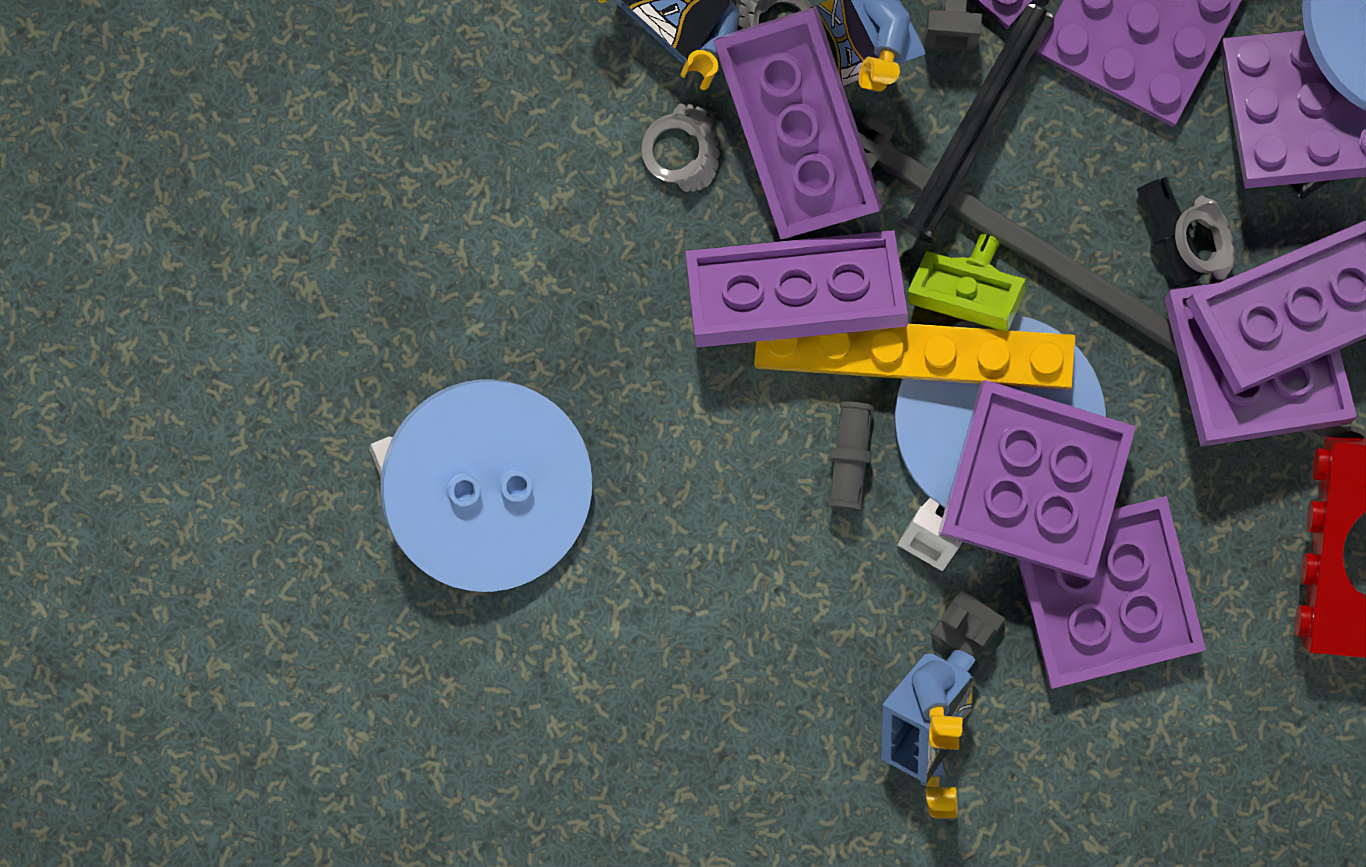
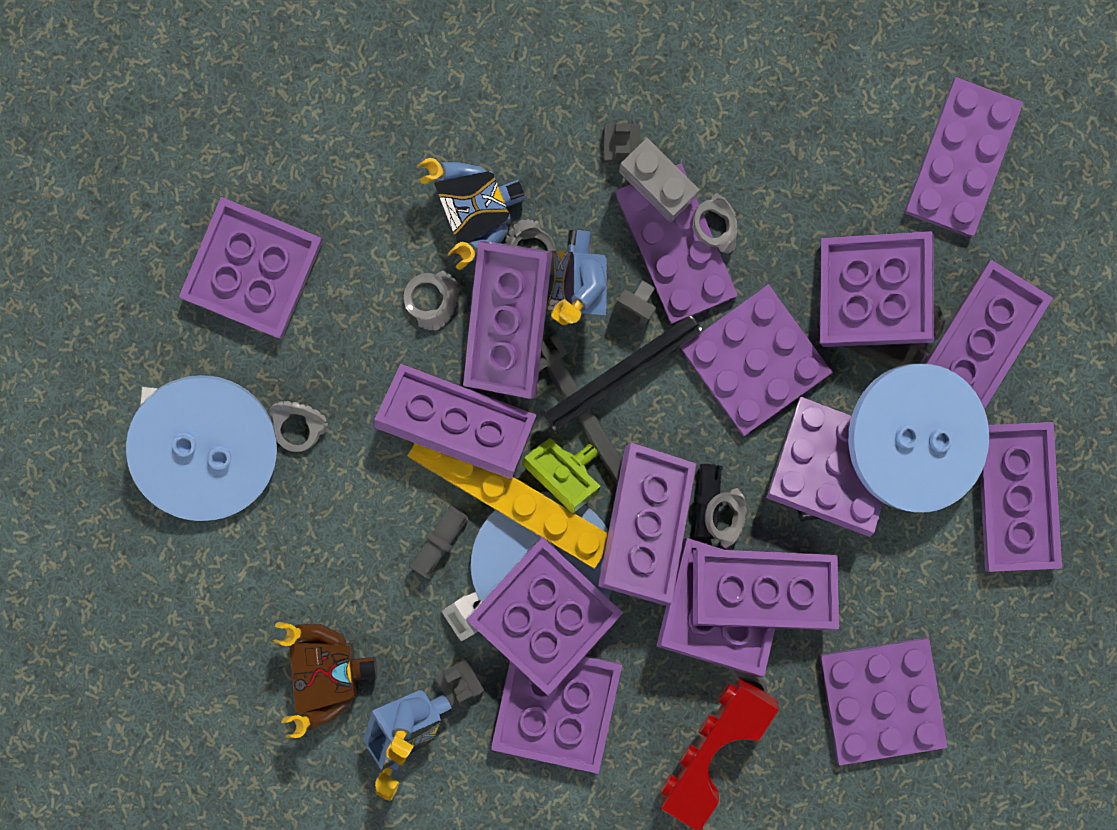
camera: 25 degrees right, 0 degrees up
(429, 223) = (251, 268): none -> medium lavender plate
(611, 378) = (317, 423): none -> light grey piece
(788, 699) = (322, 674): none -> reddish brown torso
(1111, 297) = (647, 524): none -> medium lavender plate

